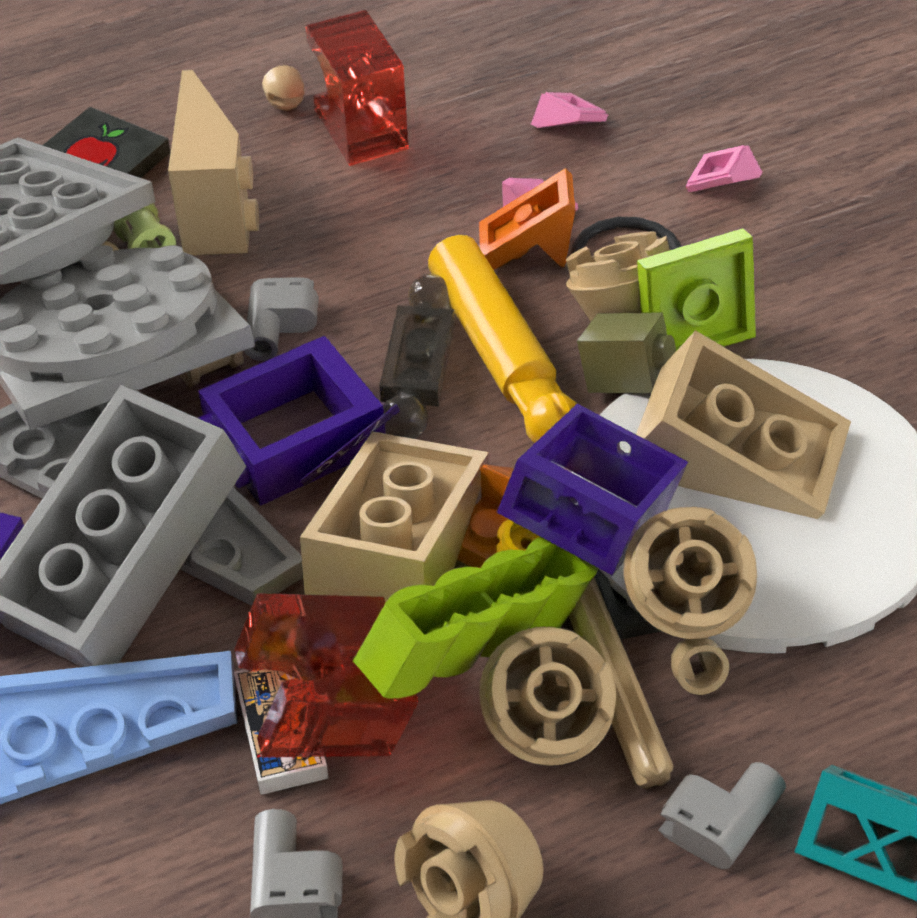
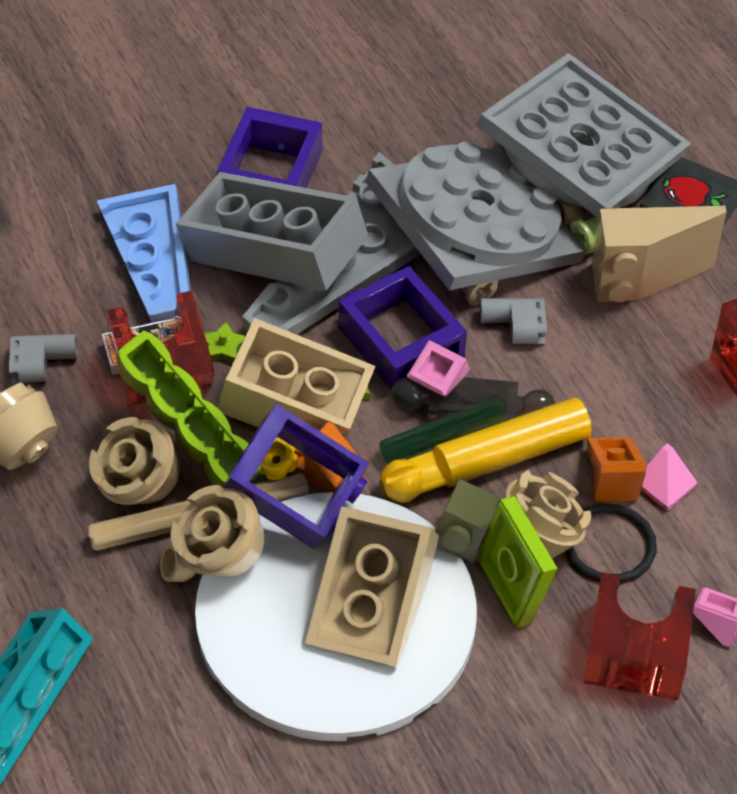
camera: 85 degrees right, 5 degrees up
(350, 445) = (368, 358): dark purple sticker -> none
(387, 364) = (438, 369): none -> bright pink slope
(474, 379) = (442, 430): none -> clear green axle
(717, 822) = (54, 571): light grey piece -> none
(785, 210) = (635, 653): none -> clear red piece

